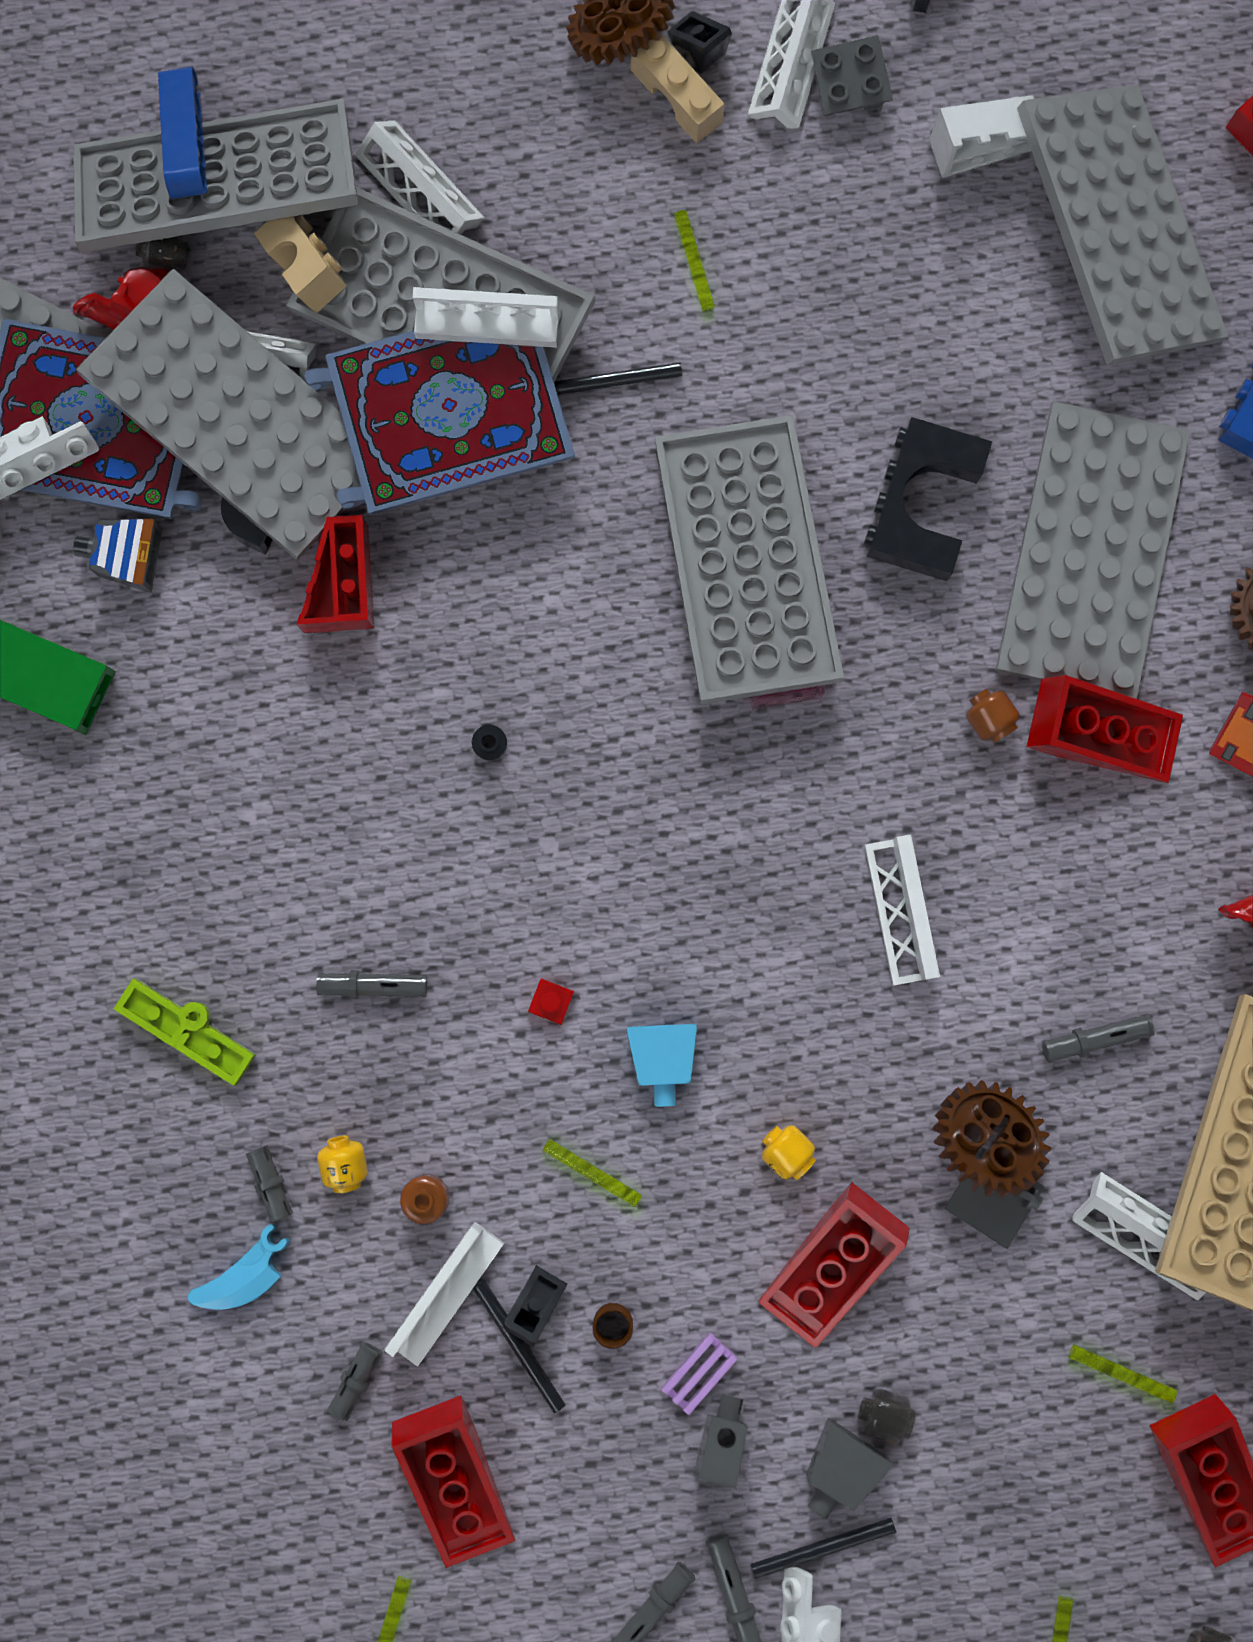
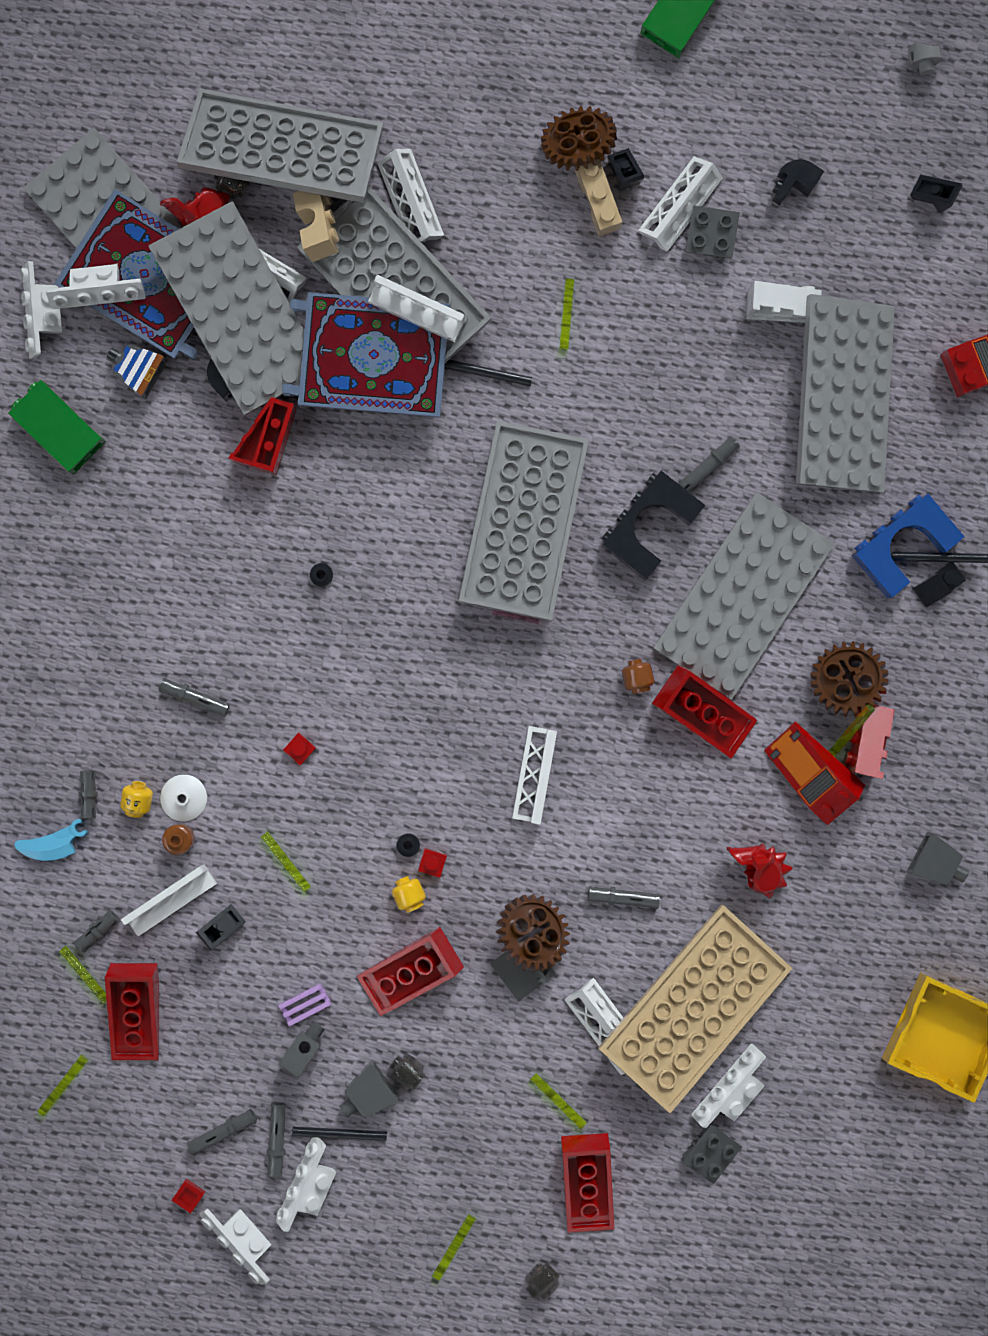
camera: 15 degrees right, 5 degrees up
(182, 133) = (270, 110): blue beam -> none
(185, 1030) = (70, 682): lime hinge -> none
(359, 1453) = (84, 974): none -> clear neon green bar
(428, 1132) = (195, 798): none -> white dish
(520, 1348) = (203, 949): black bar -> none
(612, 1343) = (255, 965): reddish brown piece -> none
(663, 1058) = (354, 808): medium azure torso -> none
(751, 1072) = (408, 837): none -> black plate
(804, 1093) = (432, 862): none -> red plate
(978, 377) = (710, 464): none -> dark grey pin

